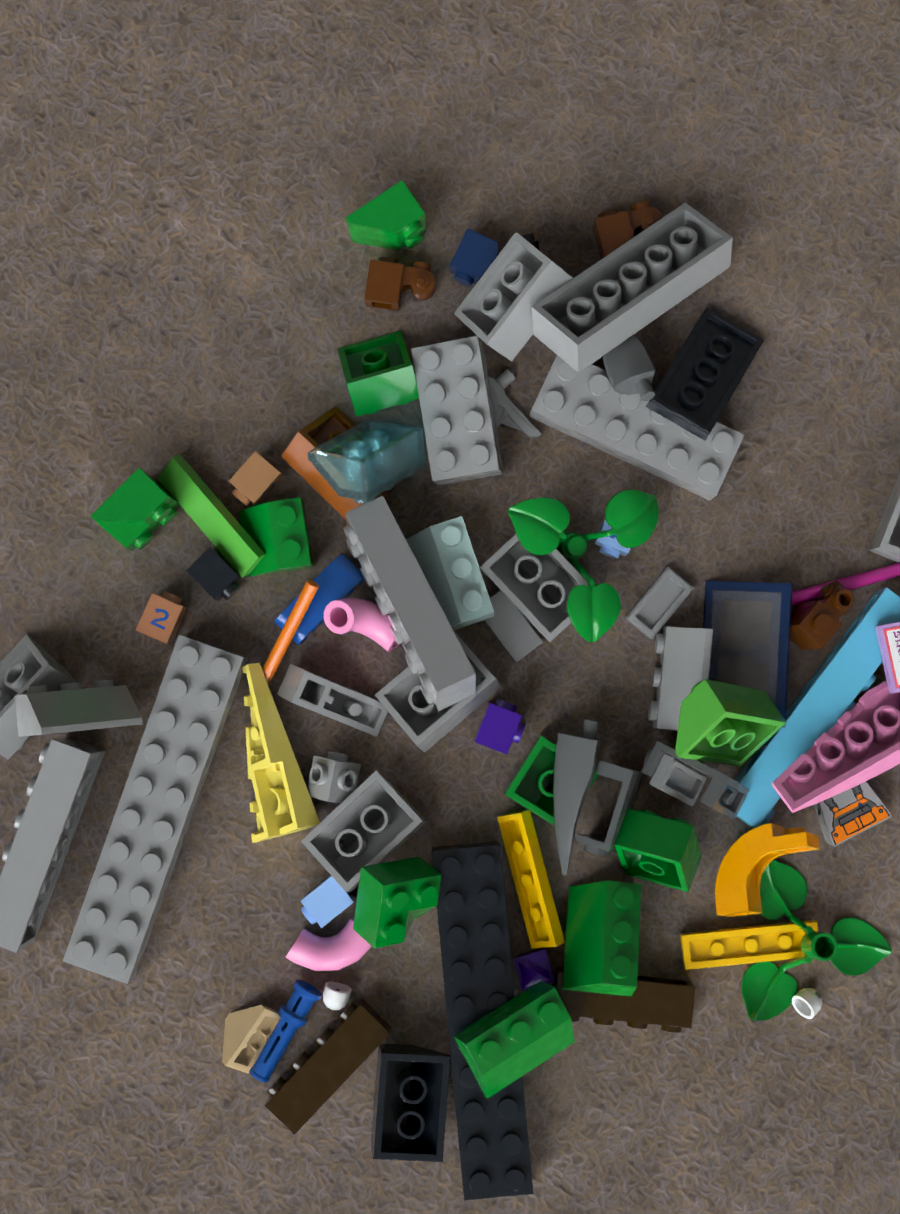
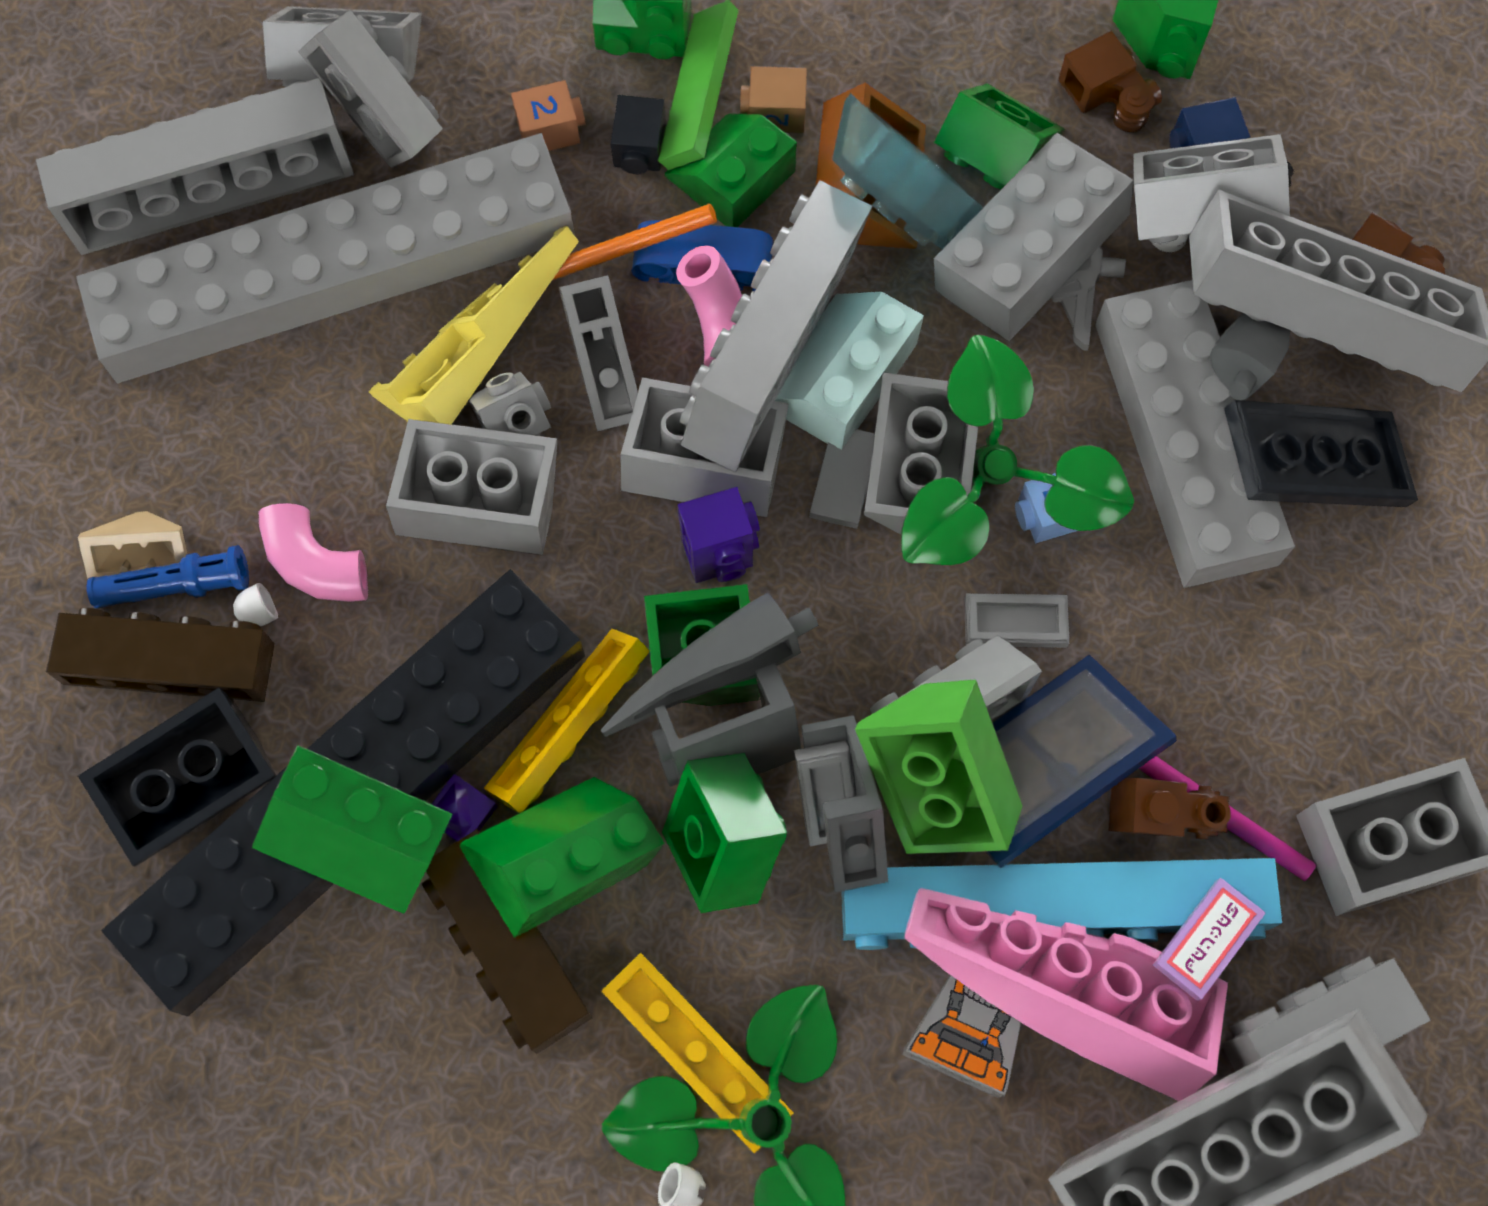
camera: 50 degrees right, 15 degrees down
(326, 902) = (358, 511): light blue brick -> none
(392, 898) = (418, 568): green slope -> none
(745, 861) = (798, 959): light orange arch -> none

